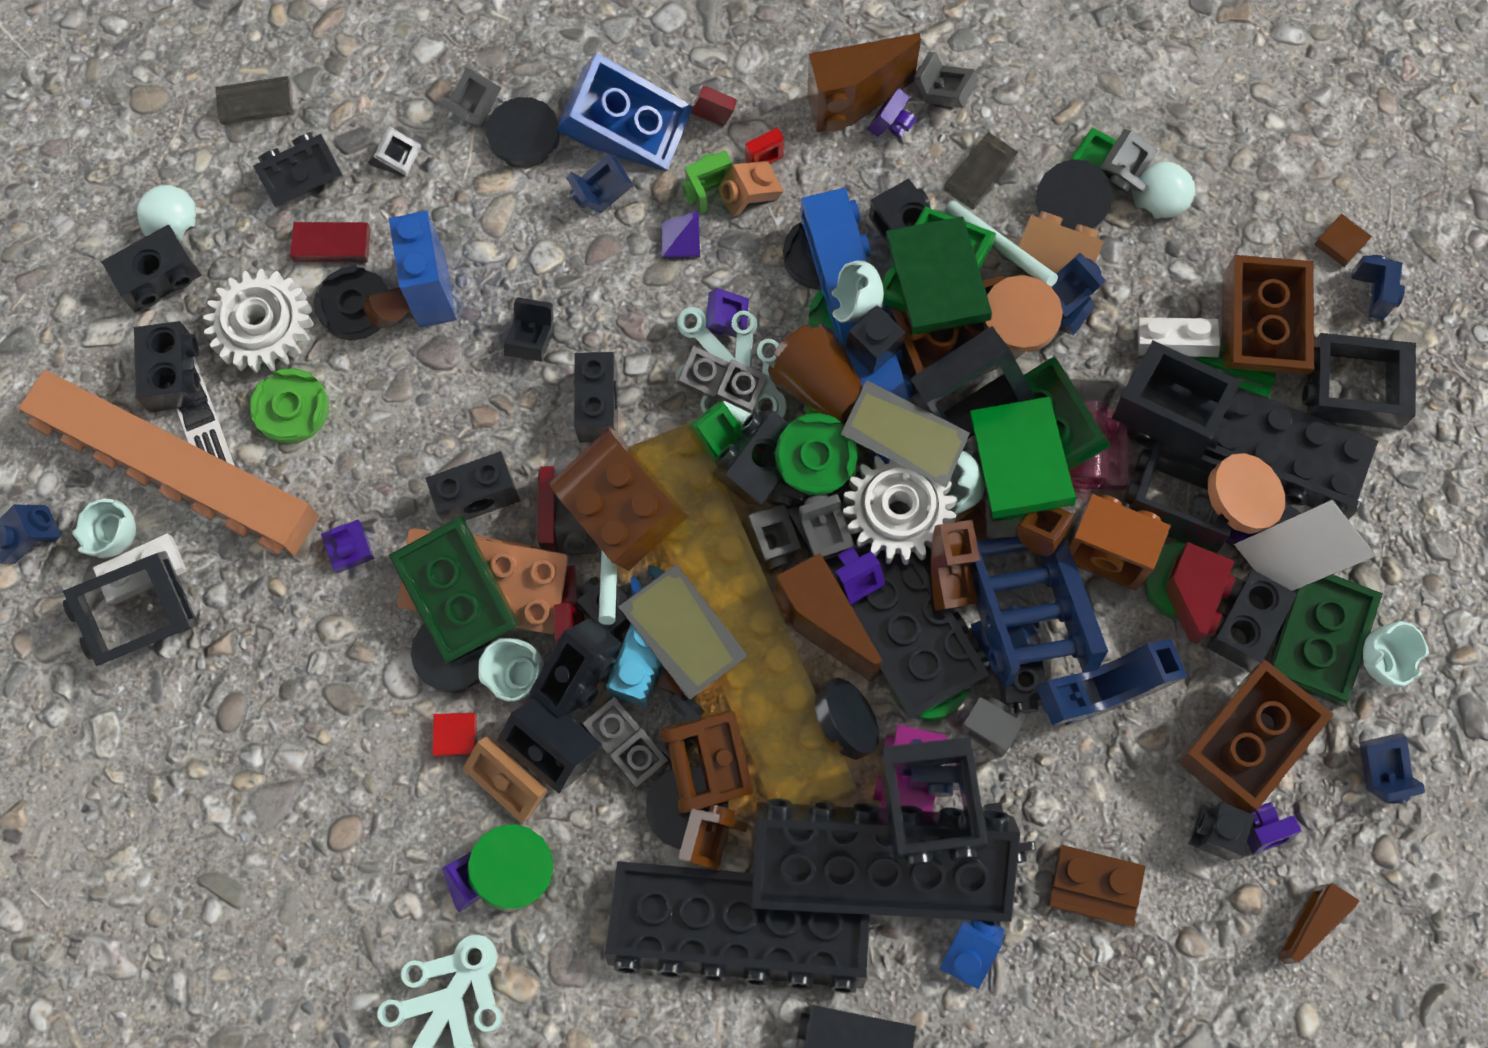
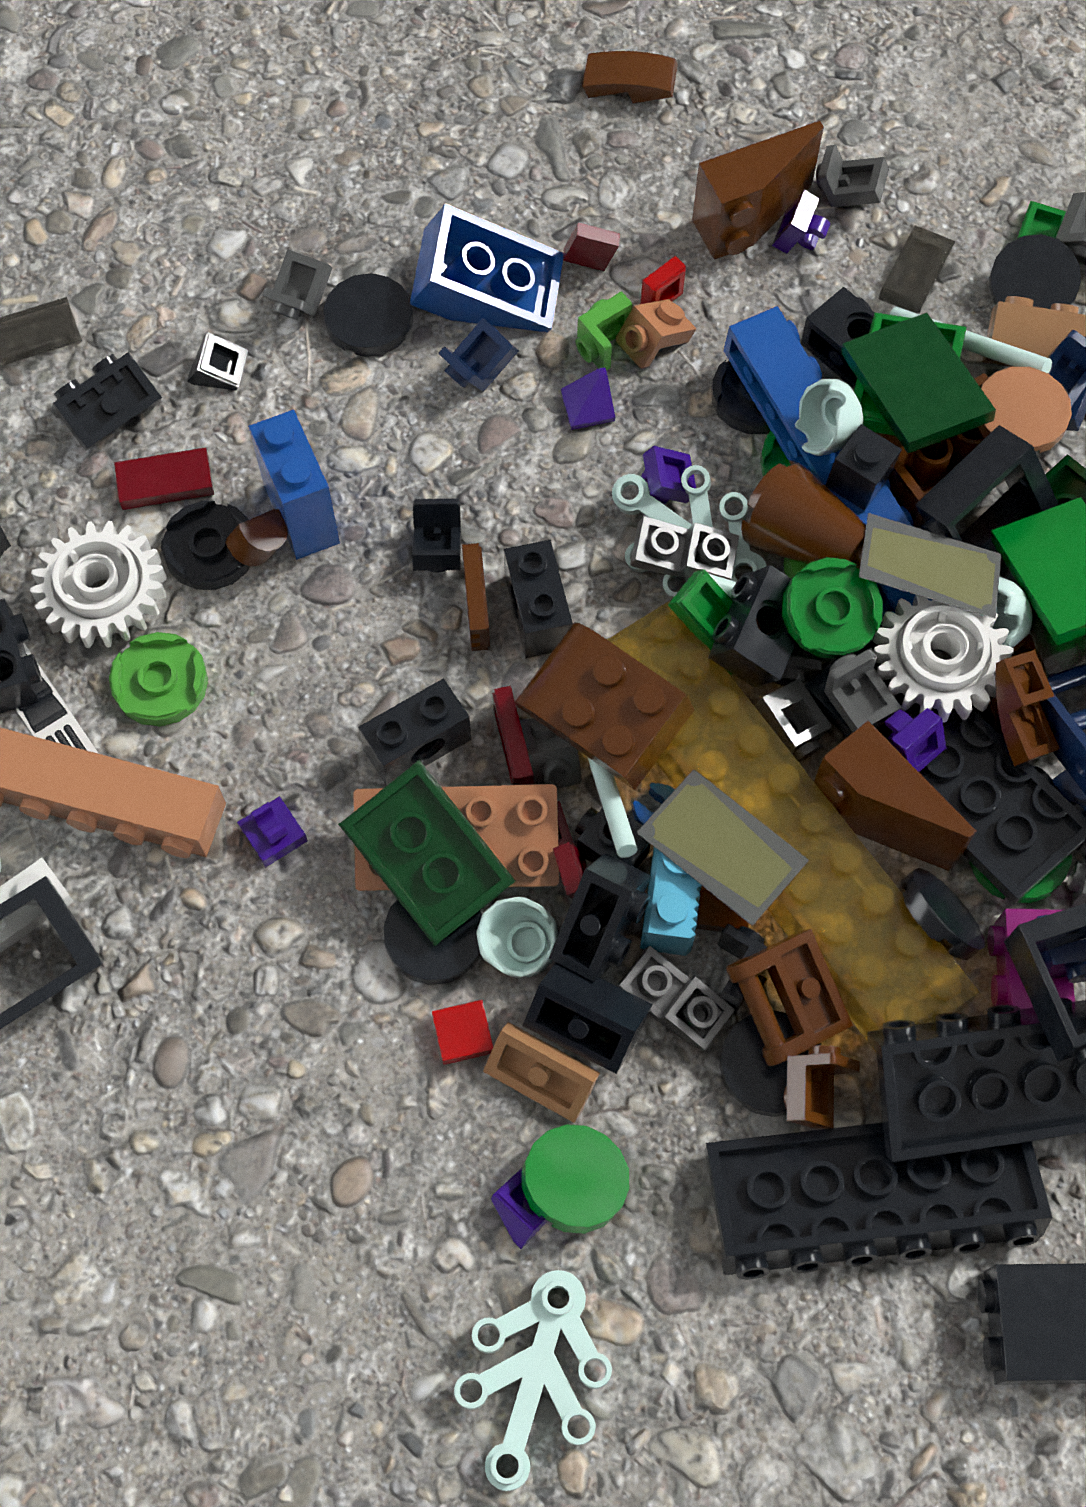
camera: 15 degrees left, 5 degrees down
(548, 386) = (476, 597): none -> reddish brown tile

